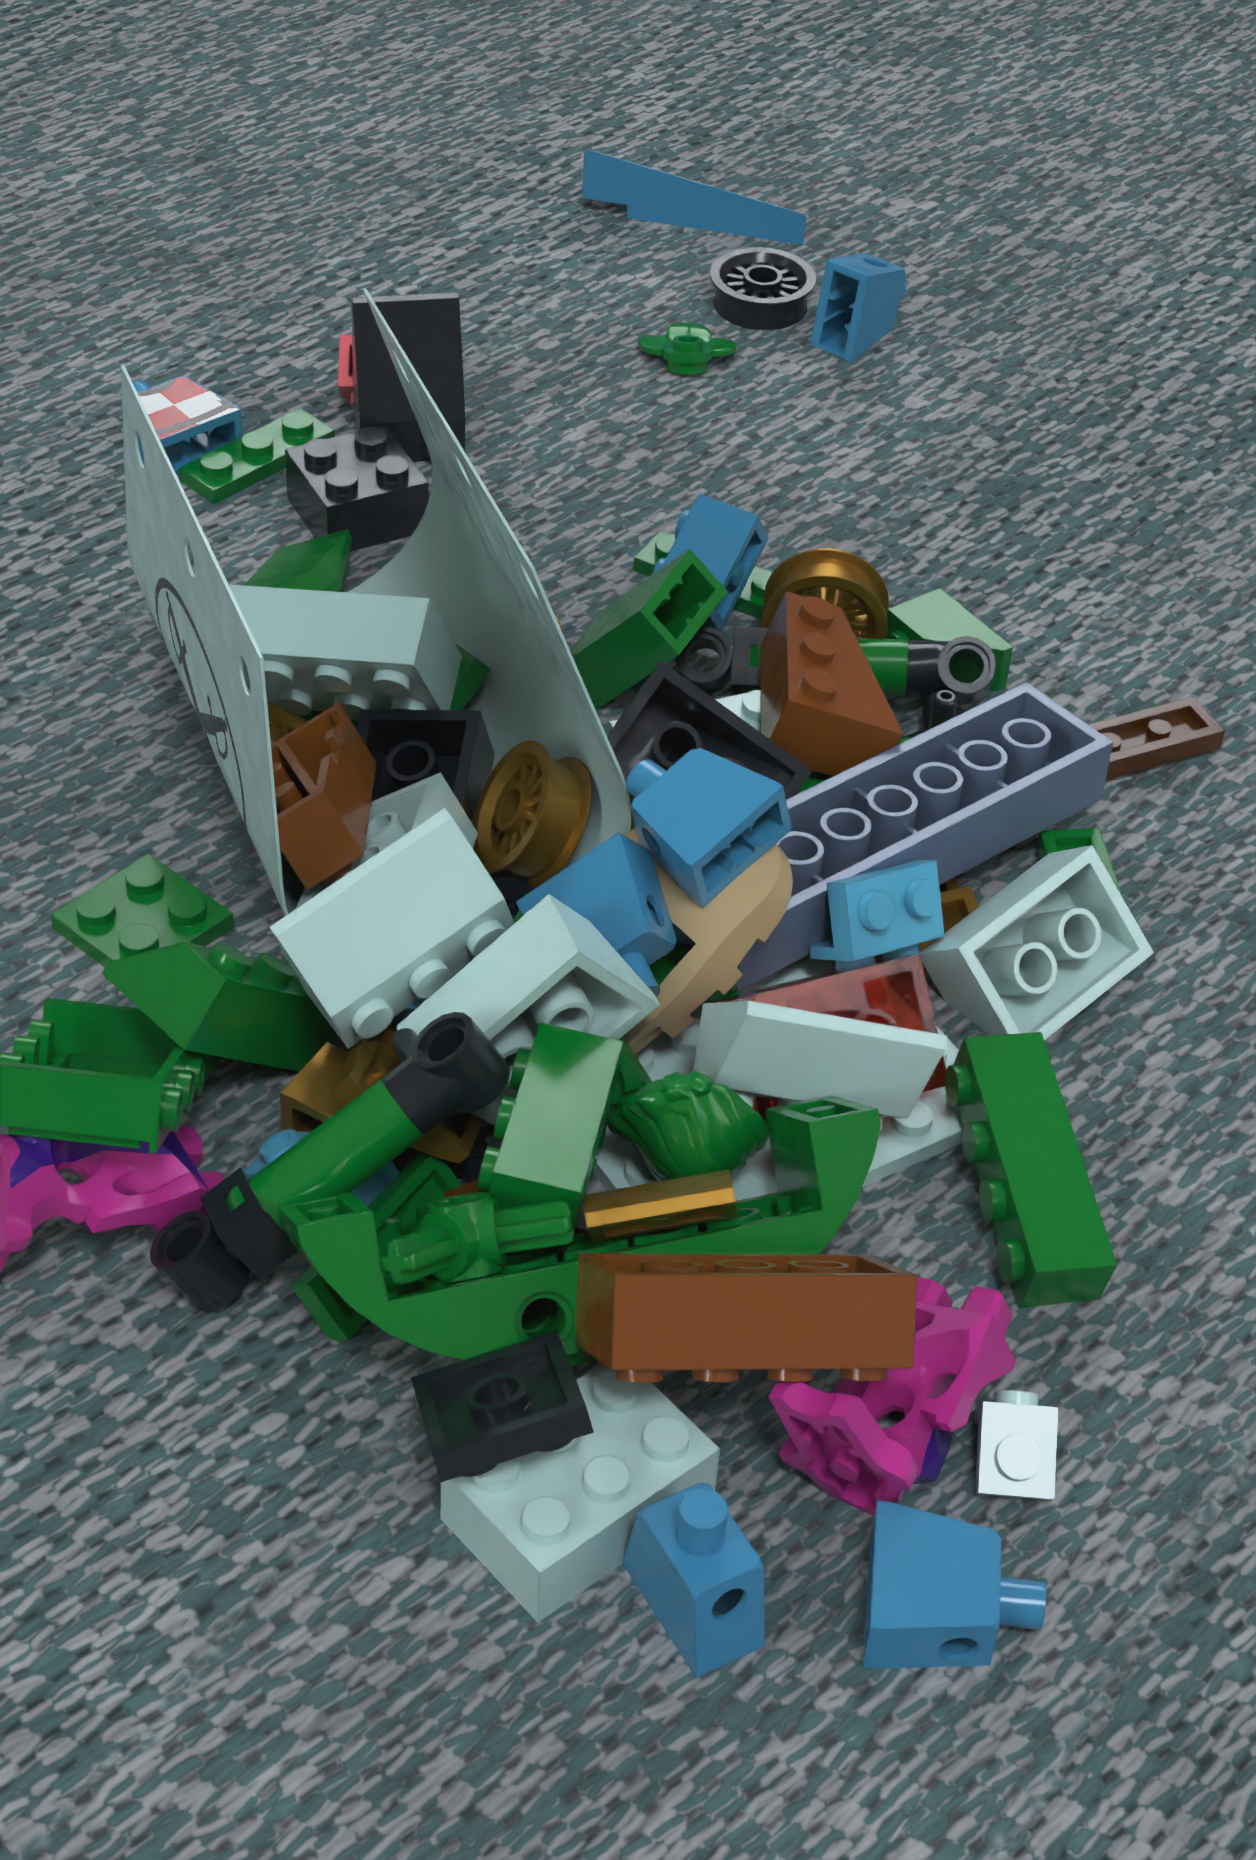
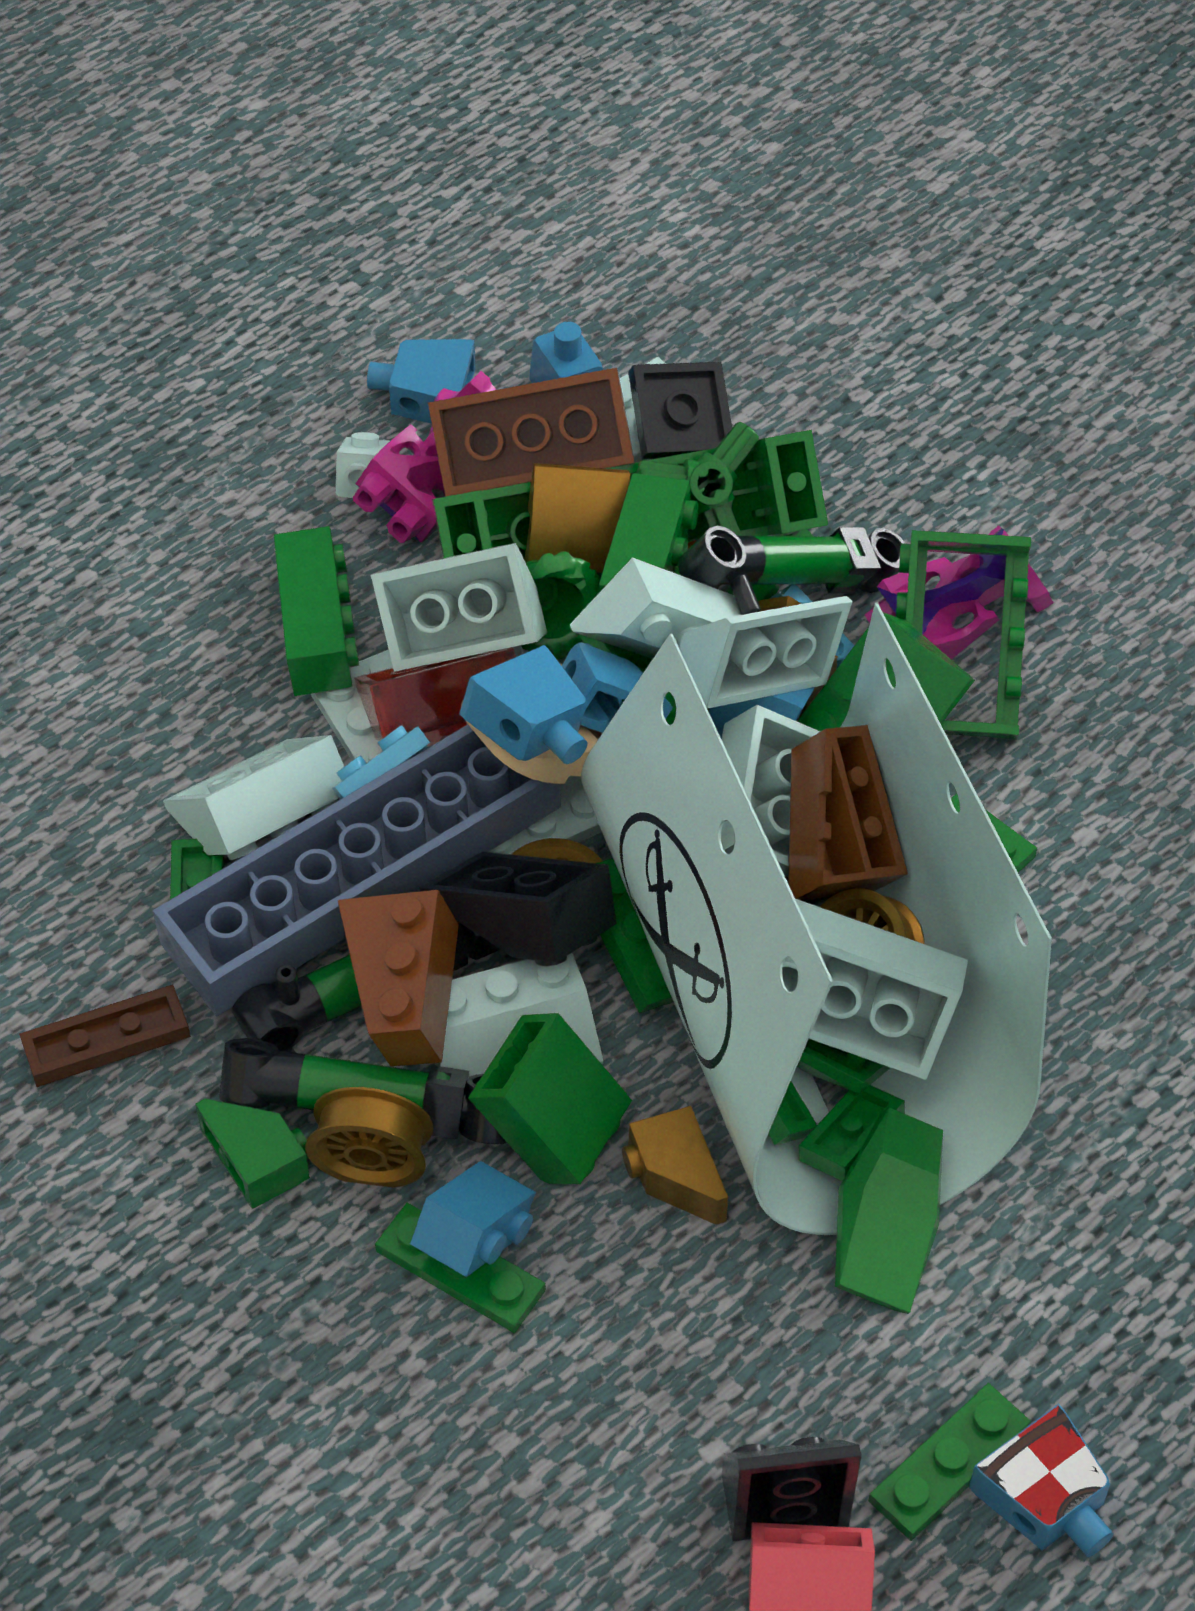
camera: 175 degrees left, 10 degrees up
(357, 485) = (836, 1360): black brick -> none

